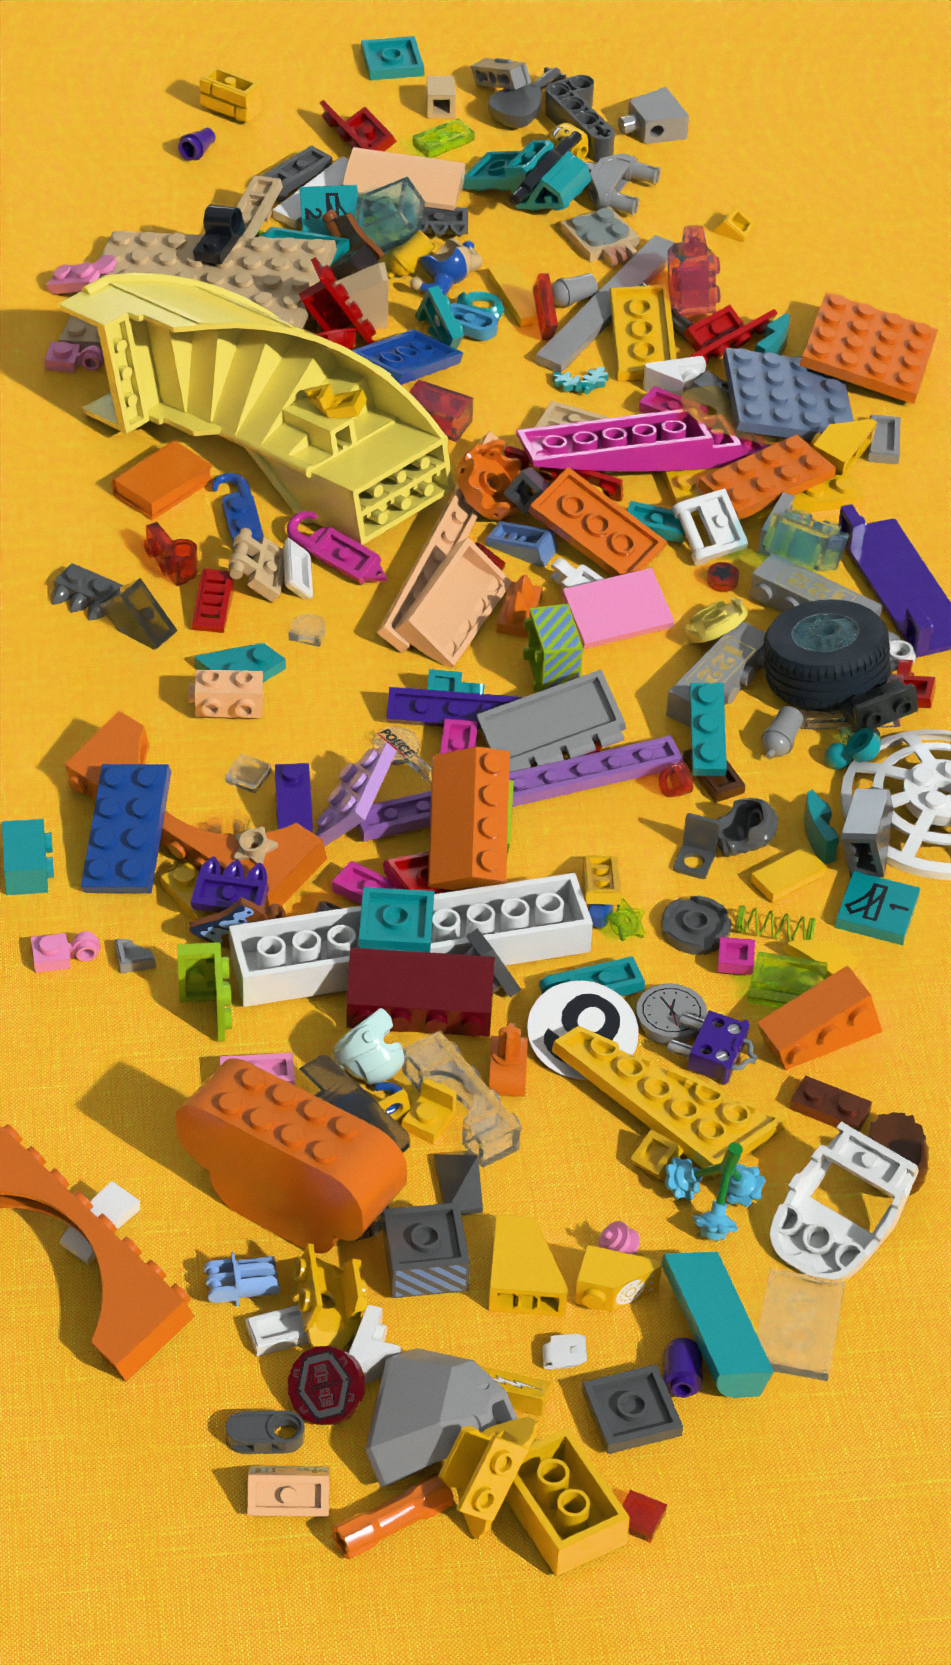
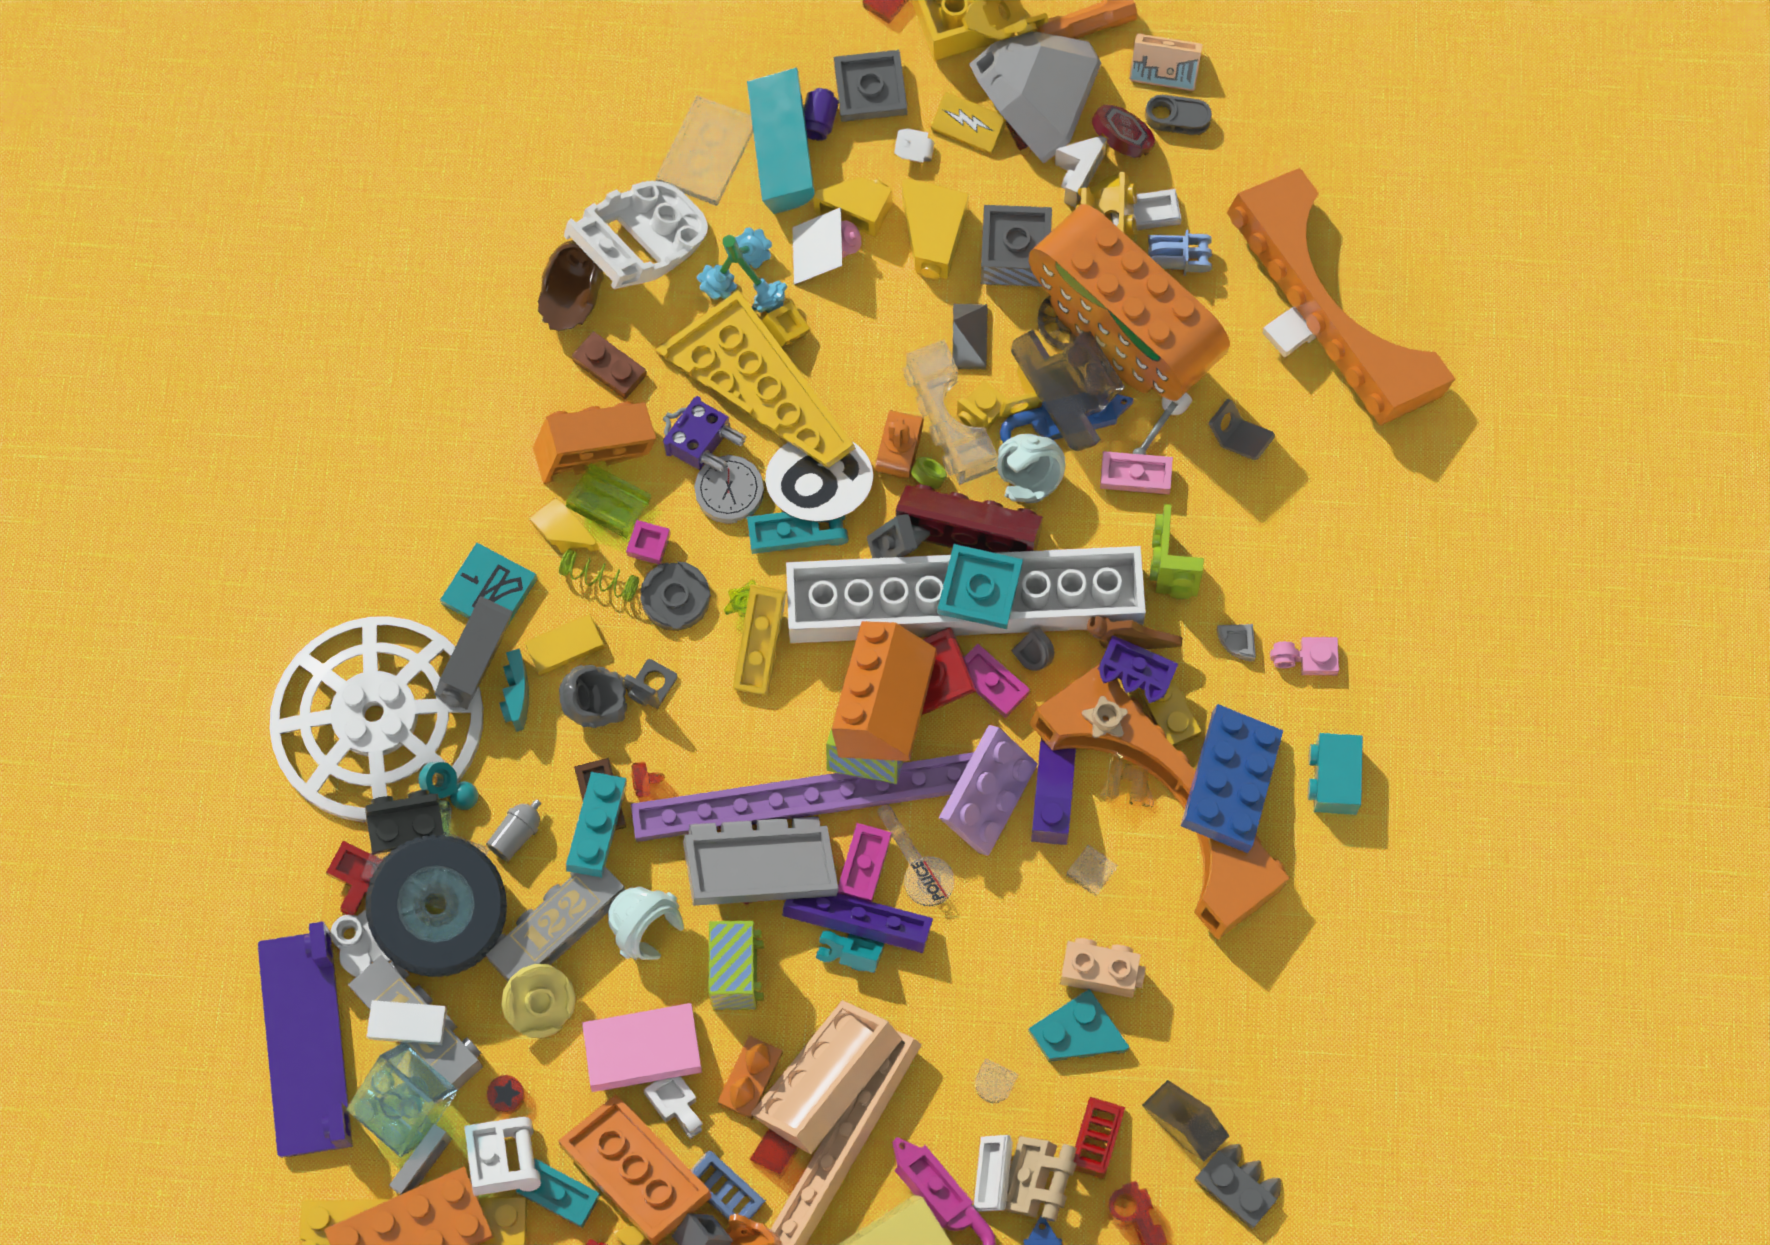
camera: 165 degrees left, 25 degrees up
(145, 1116) = (1240, 435): none -> dark grey bracket
(473, 1043) = (928, 472): none -> lime tile
(643, 1226) = (817, 246): none -> white sticker
(645, 676) = (632, 914): none -> light aqua helmet
(820, 581) = (406, 1022): none -> white tile

